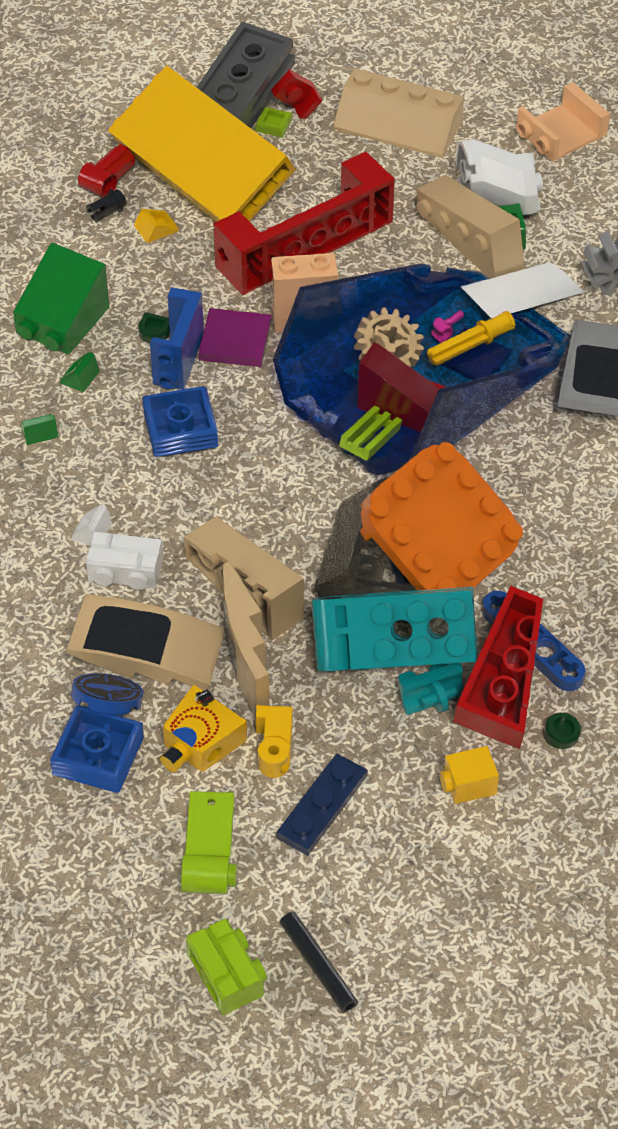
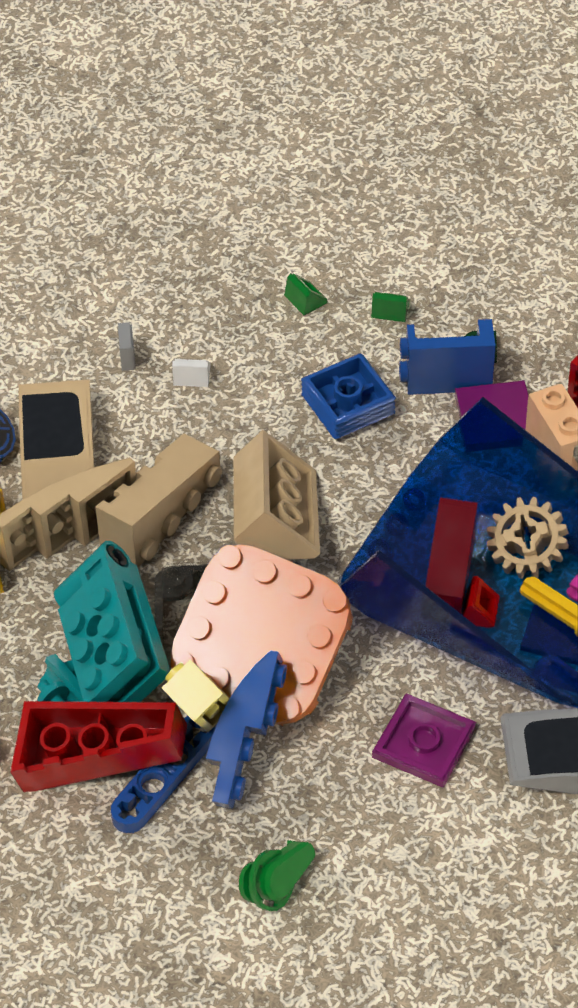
camera: 75 degrees right, 0 degrees up
(46, 564) = (126, 346): none -> light grey tile
(62, 299) = (466, 257): green slope -> none
(124, 560) = (152, 403): white brick -> none
(289, 491) = (275, 500): none -> tan slope
(371, 423) = (393, 547): lime tile -> none
(499, 569) = (196, 694): none -> light yellow brick
(519, 555) = (246, 712): none -> blue slope
(551, 466) = (424, 740): none -> magenta tile
(562, 730) = (52, 822): dark green tile -> none

